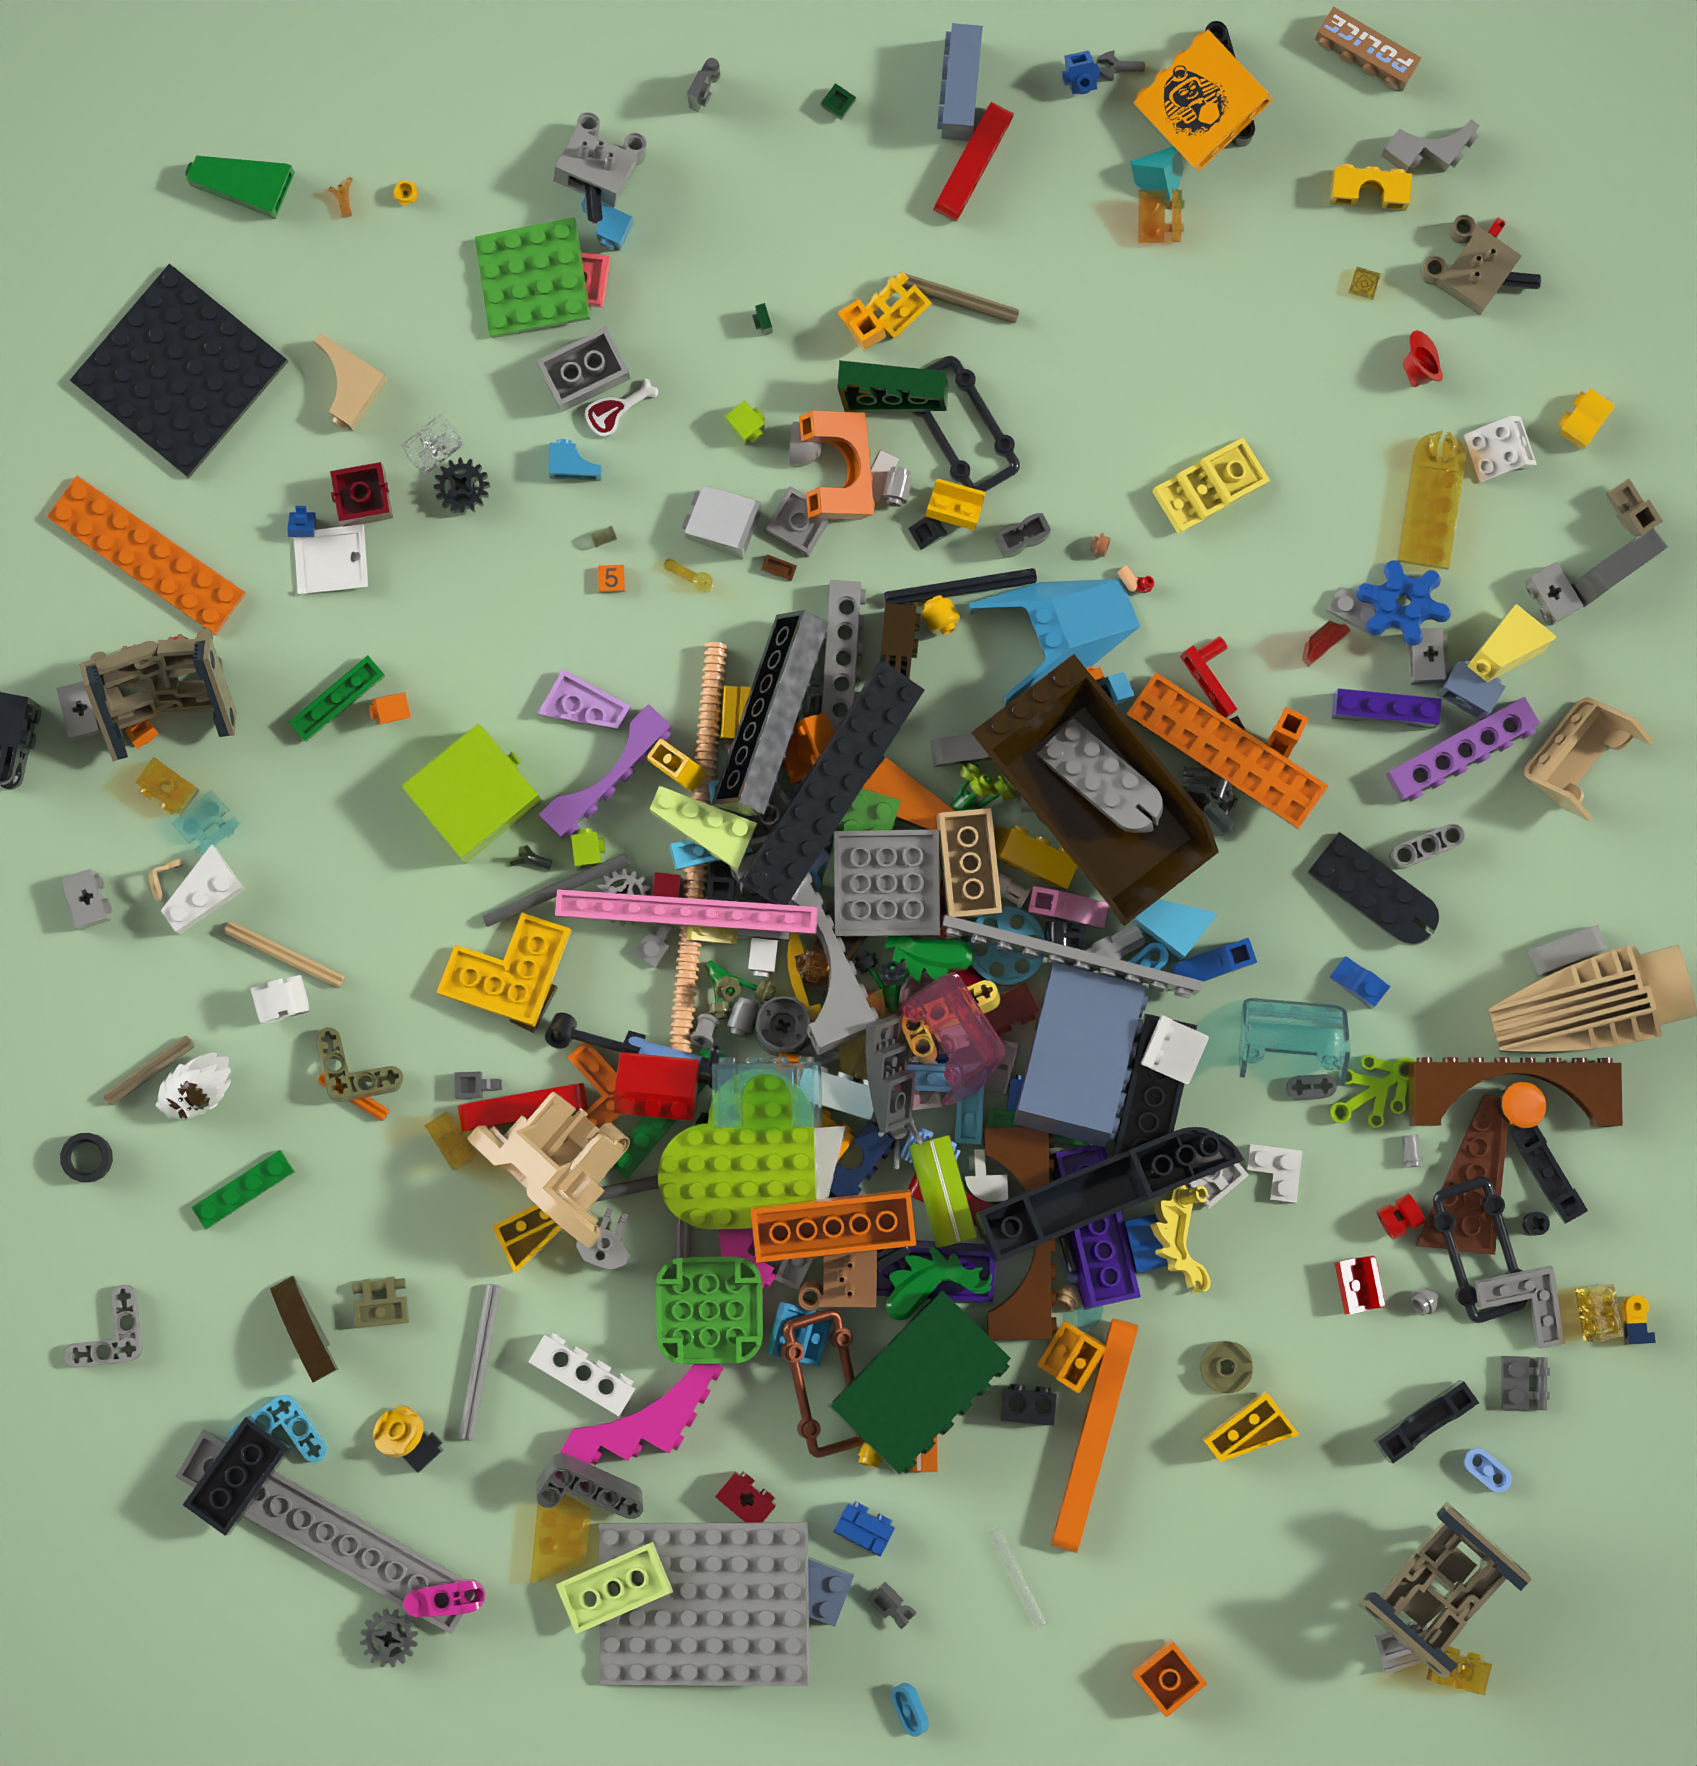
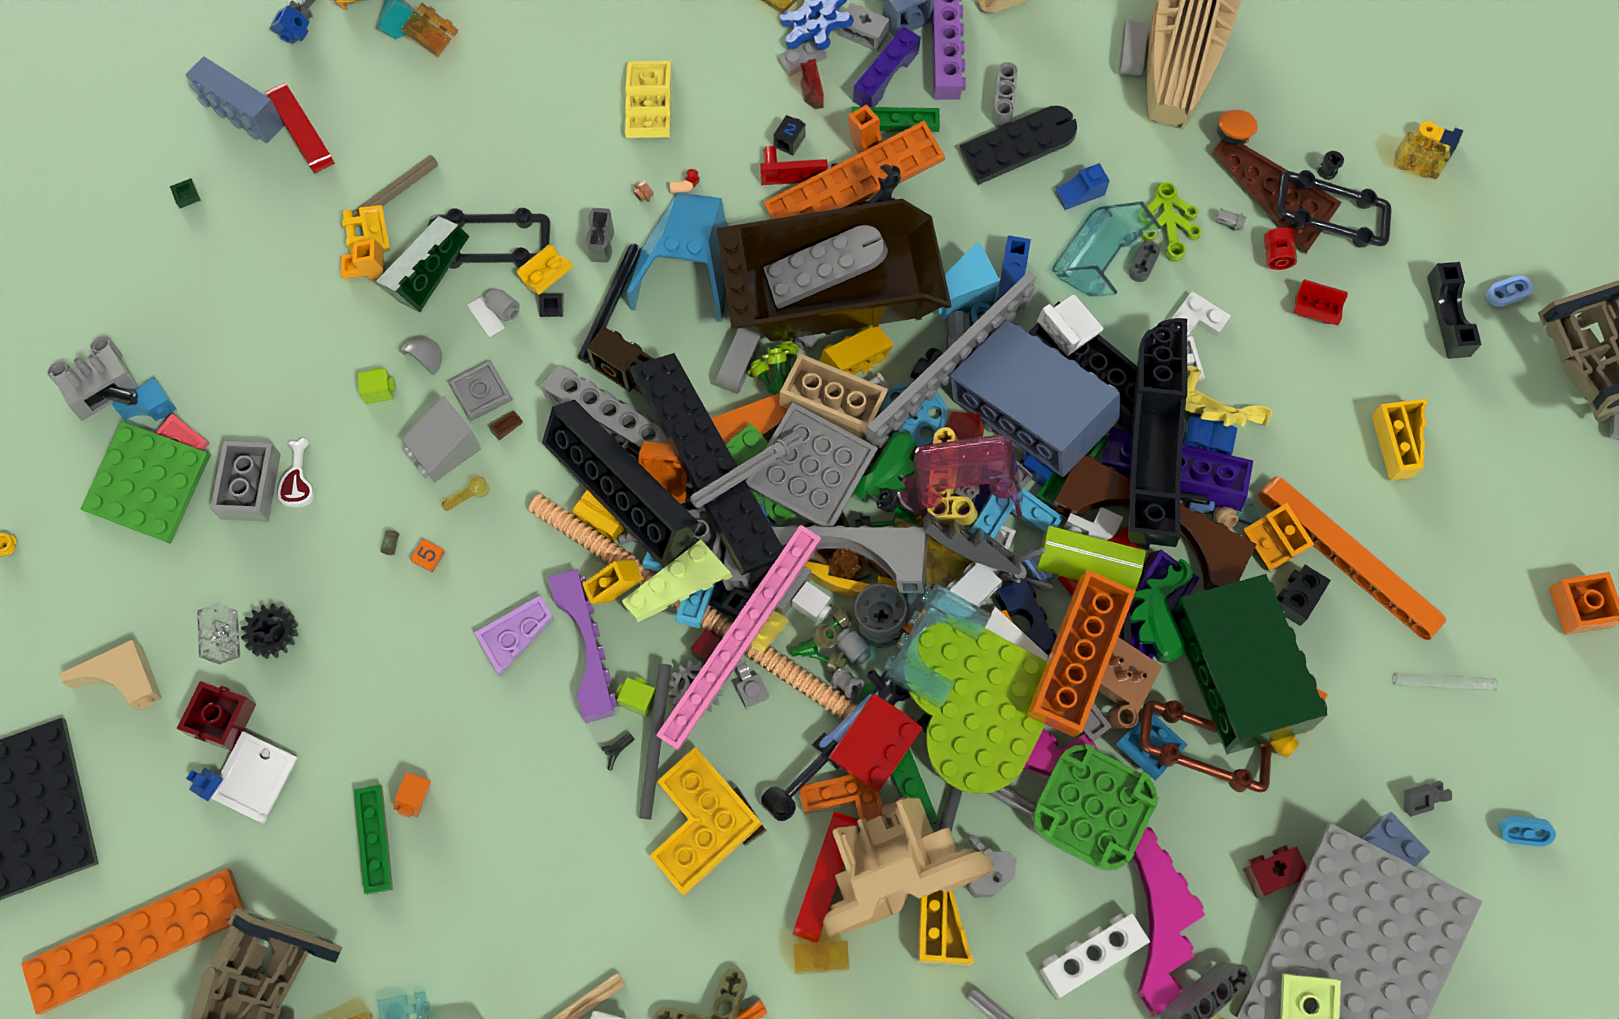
camera: 60 degrees left, 15 degrees down
(472, 792) = (528, 764): lime container -> none
(472, 1085) = (780, 911): dark grey plate -> none
(568, 464) = (313, 535): dark azure arch -> none
(699, 90) = (95, 272): dark grey plate -> none
(762, 320) = (306, 330): dark green plate -> none
(841, 828) = (745, 470): none -> light grey axle
(849, 435) = (435, 315): orange arch -> none
(864, 1529) = (1347, 784): blue brick -> none
(940, 615) = (624, 322): yellow head -> none
(1067, 907) = (904, 356): bright pink slope -> none
(1241, 1367) = (1333, 442): olive plate -> none
(1250, 653) = (789, 135): none -> black brick
(1333, 750) = (904, 118): none -> green plate
(1424, 1301) = (1354, 268): light grey plate -> none
(1515, 1383) = (1446, 240): dark grey plate -> none
(1532, 1284) = (1385, 185): light grey plate -> none
(1548, 1173) = (1297, 141): black slope -> none
(1590, 1085) = (1194, 170): reddish brown arch -> none

